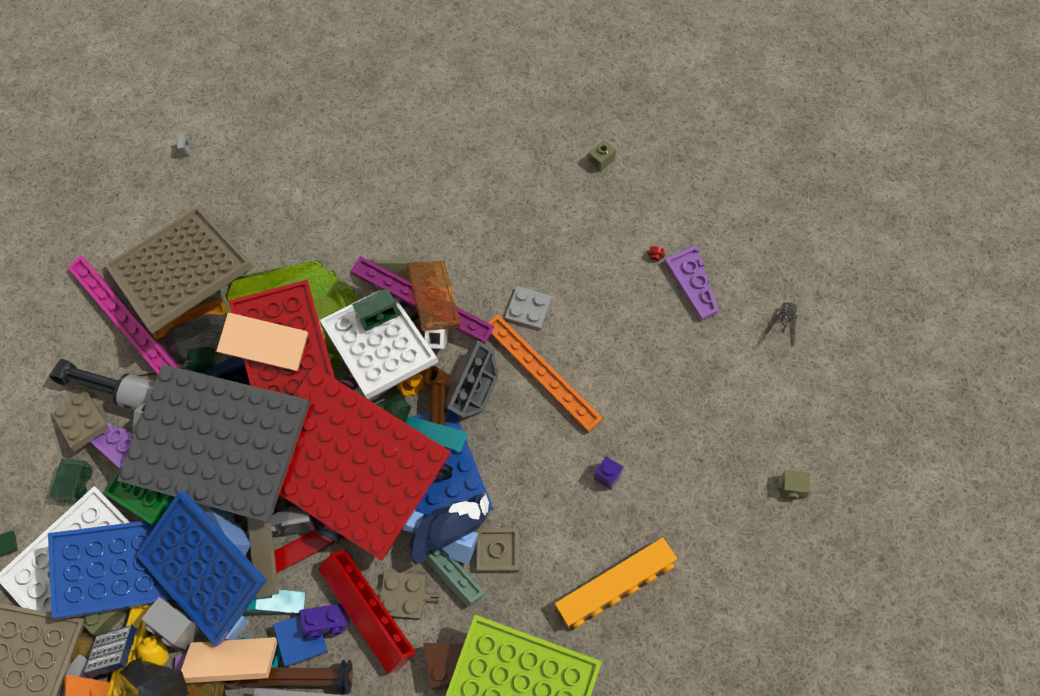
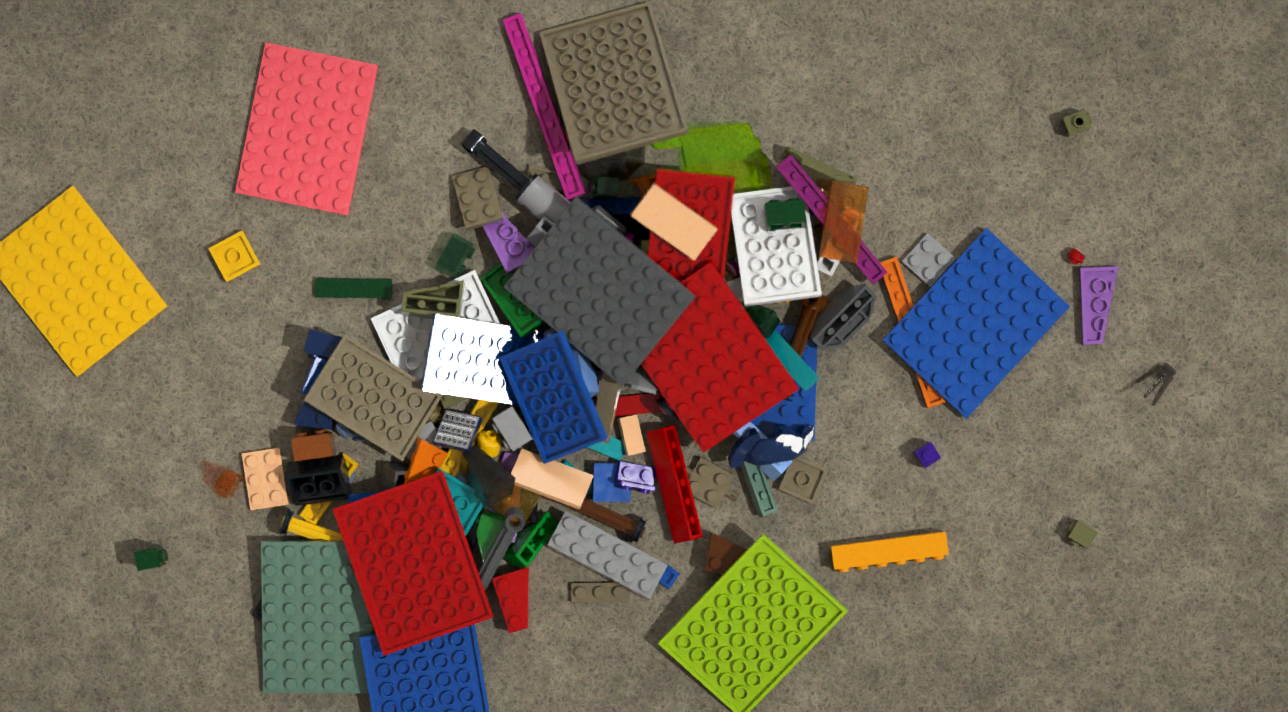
camera: 15 degrees right, 25 degrees up
(32, 536) = (435, 300): none -> olive wedge
(305, 581) = (631, 435): none -> light nougat tile
(595, 342) = (975, 323): none -> blue plate

